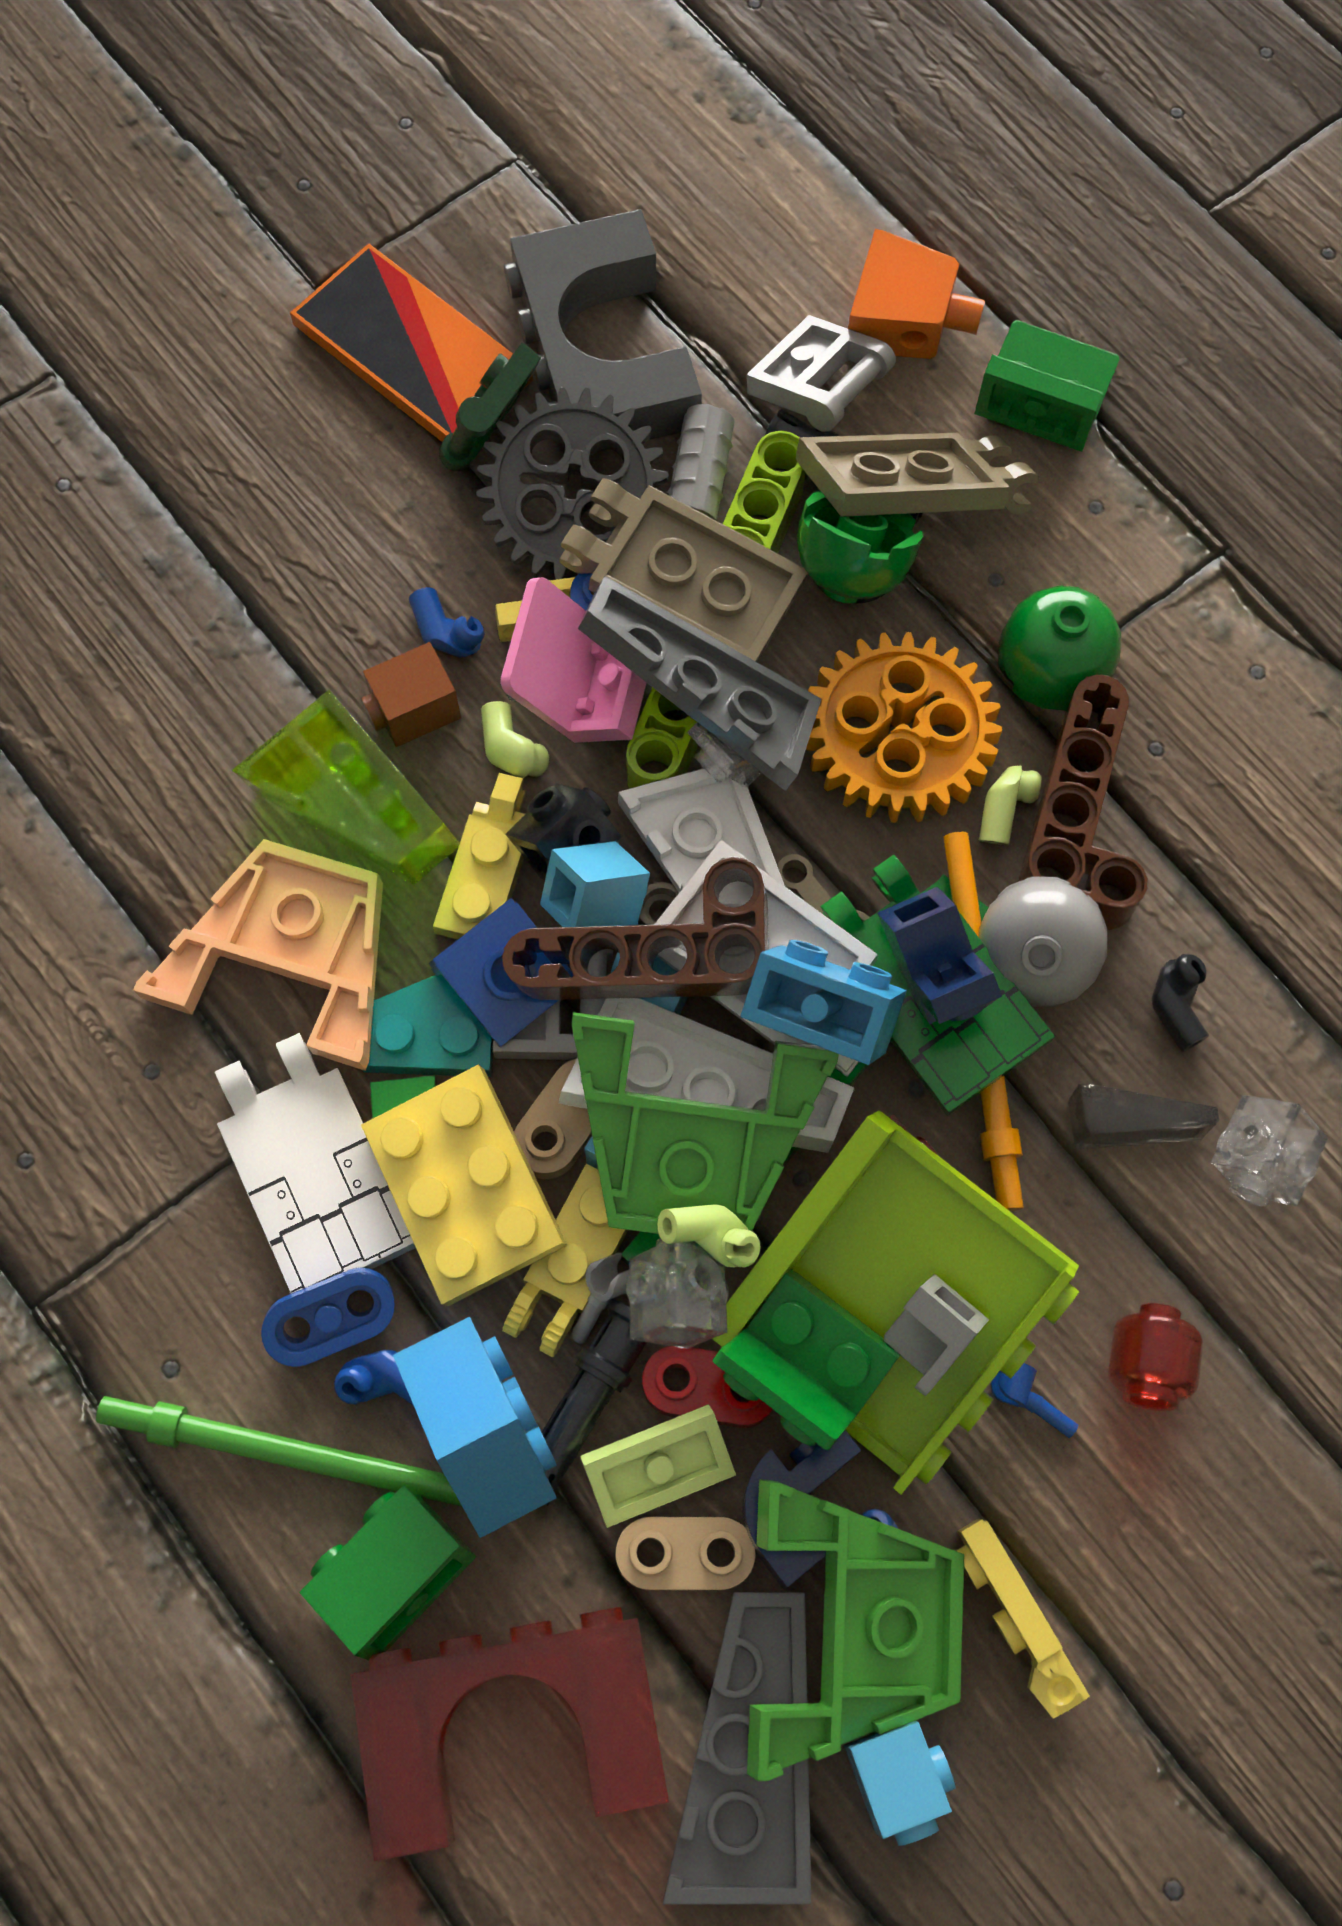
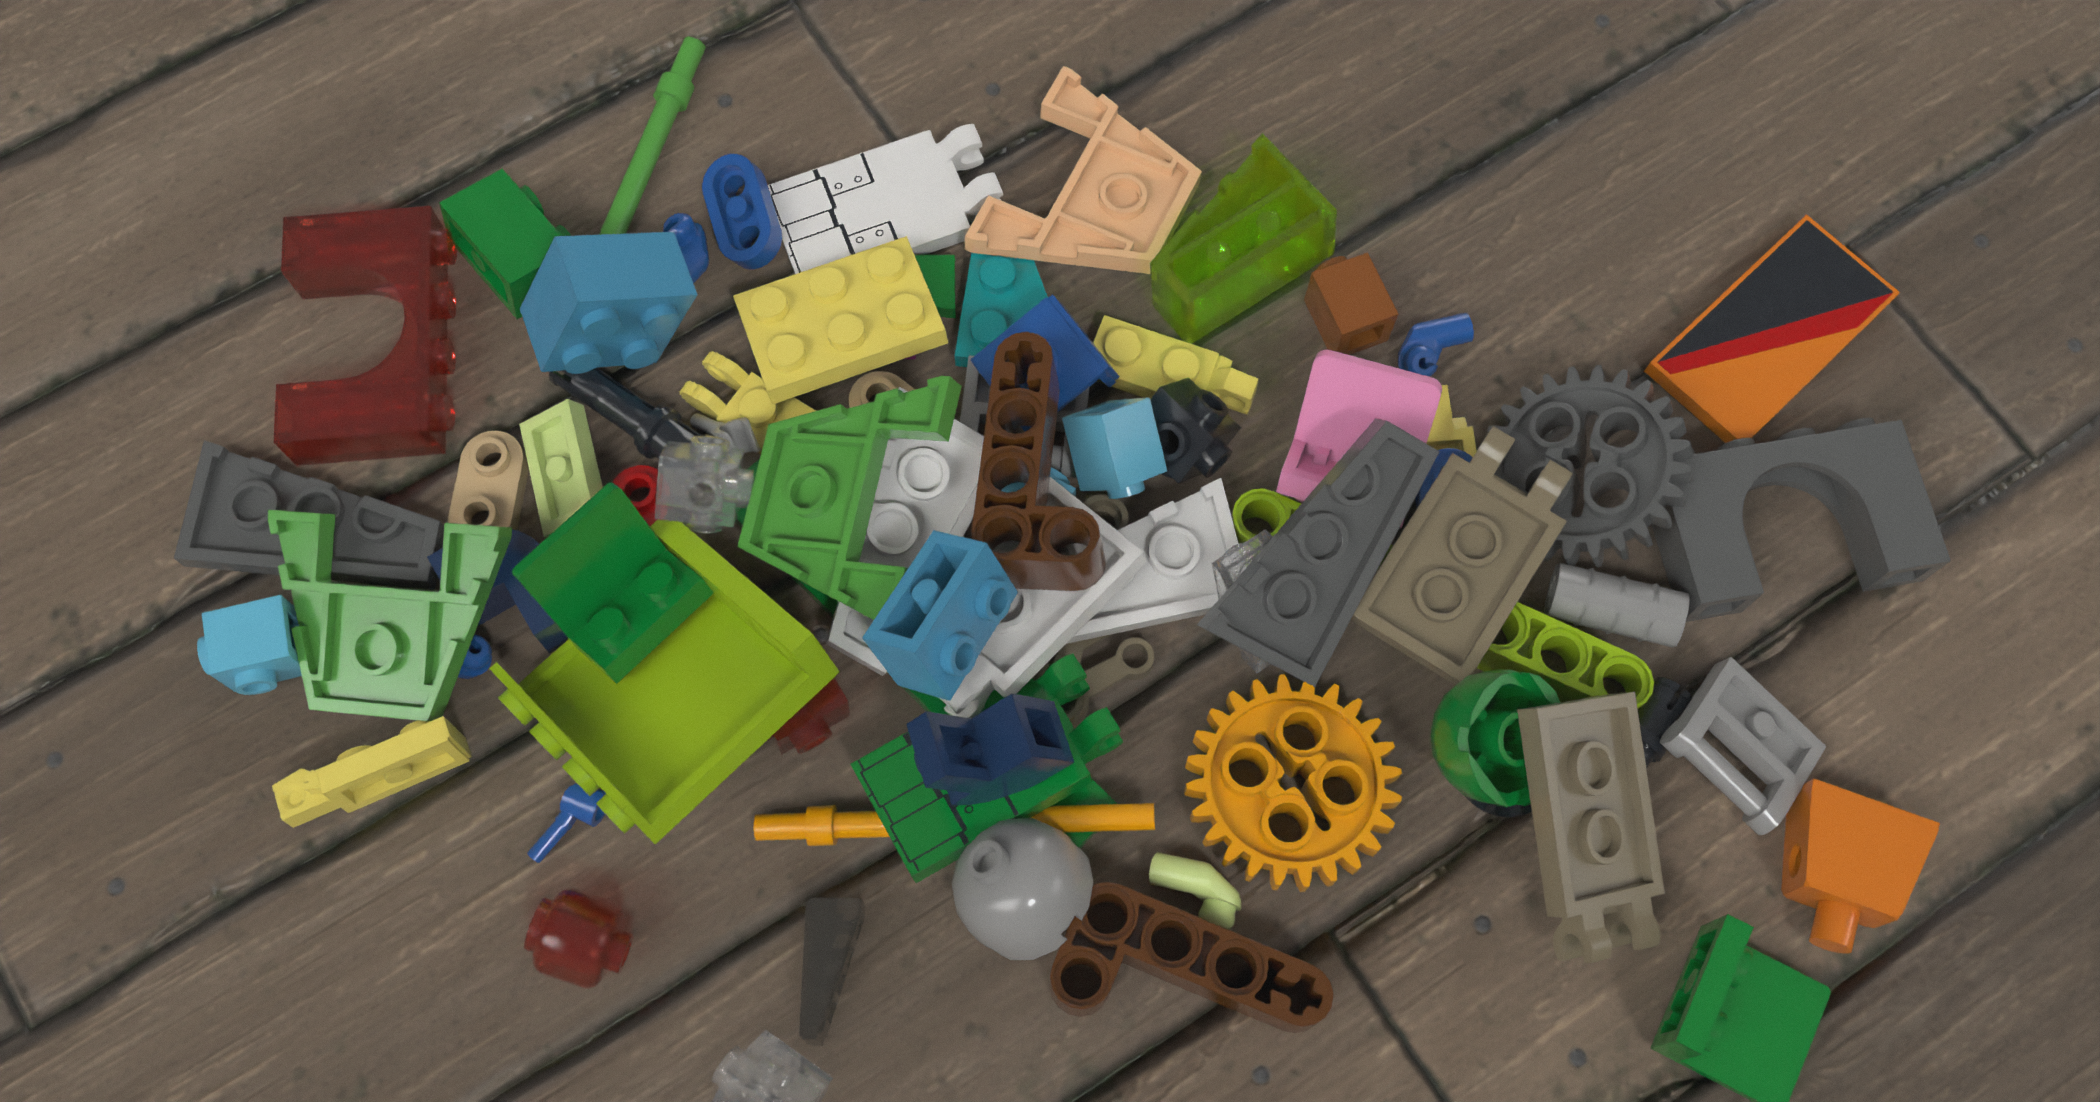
camera: 95 degrees right, 0 degrees up
(492, 402) = (1689, 384): dark green plate -> none
(508, 749) = (1281, 401): yellowish green arm -> none
(714, 1230) = (747, 510): yellowish green arm -> none
(934, 1330) = (621, 704): light grey panel -> none
(1056, 643) = (1387, 976): green cylinder -> none
(1174, 998) = (959, 1036): black arm -> none

